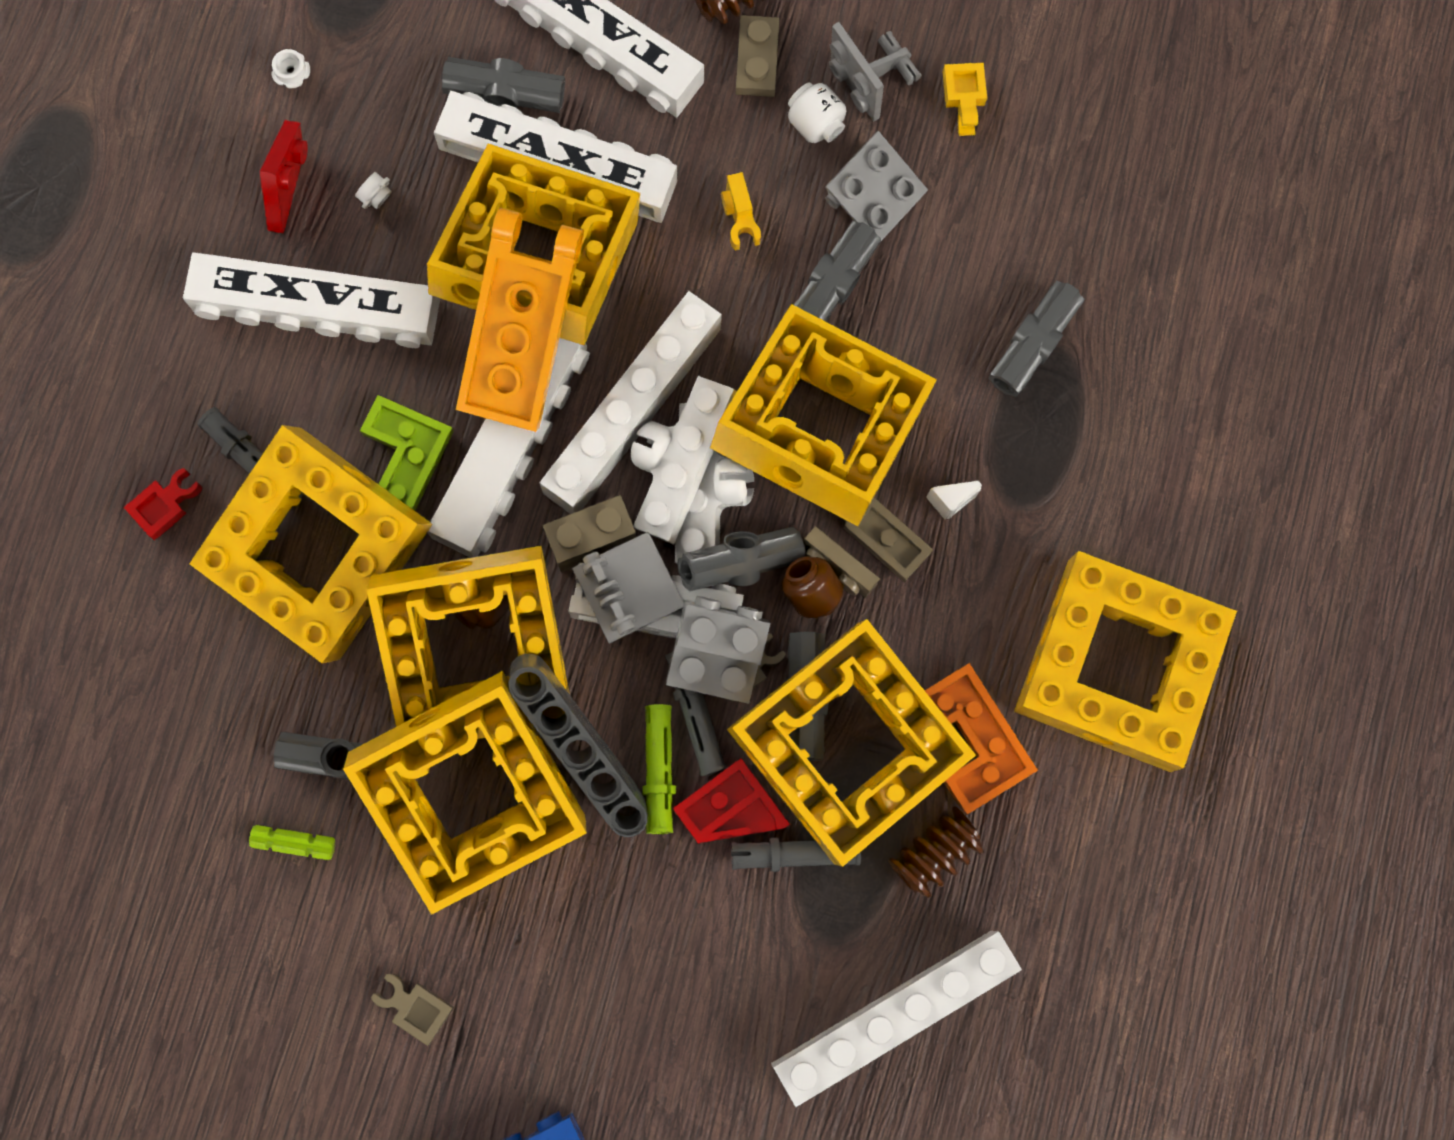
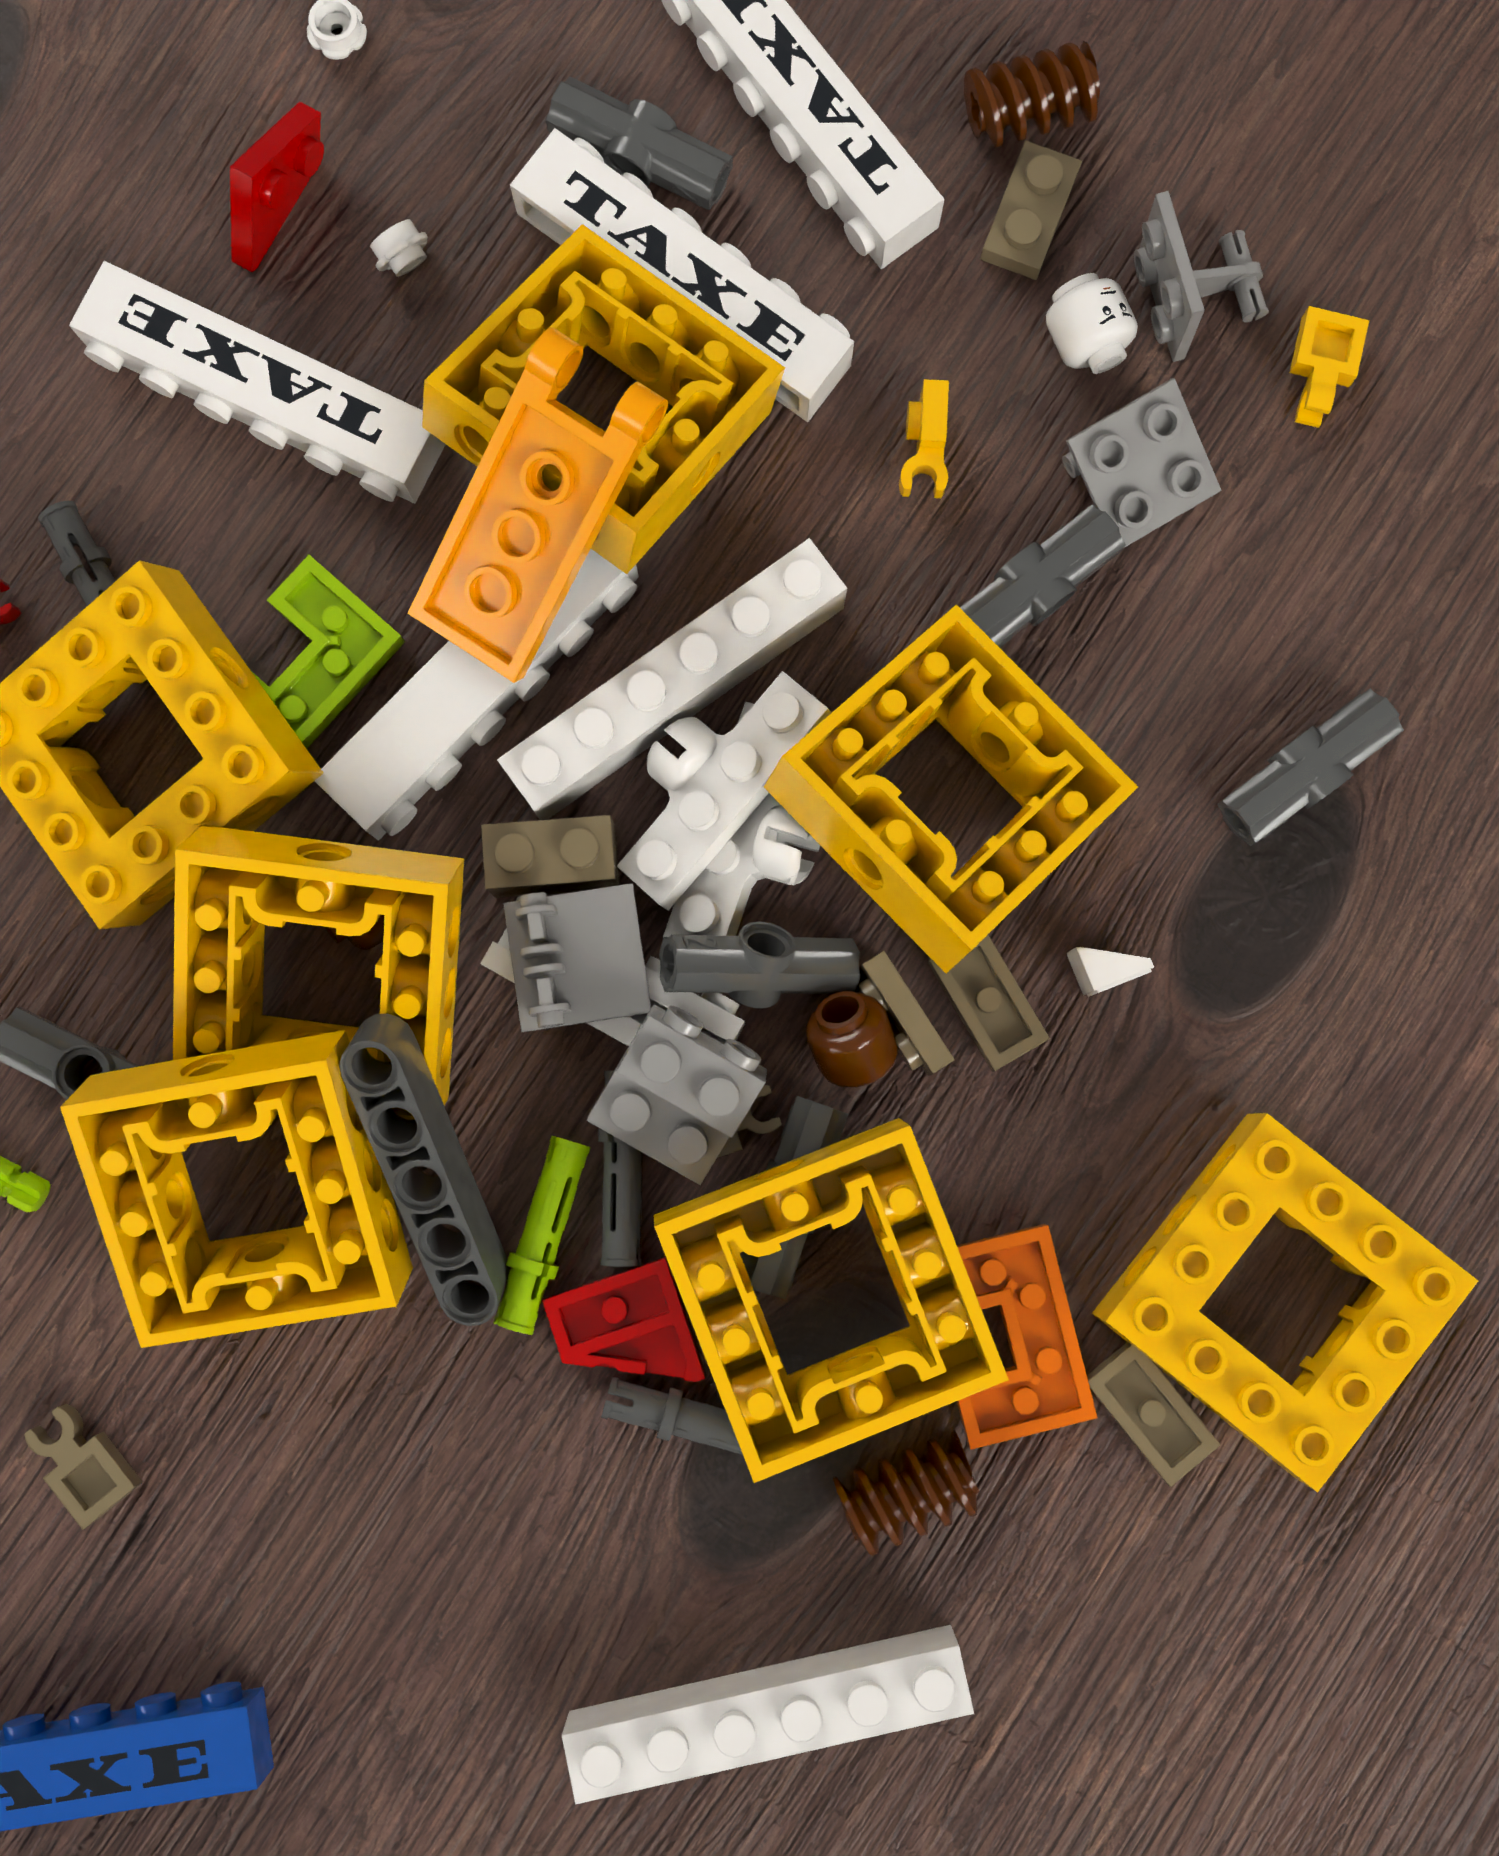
camera: 25 degrees right, 5 degrees up
(1070, 758) = (1151, 1413): none -> dark tan plate

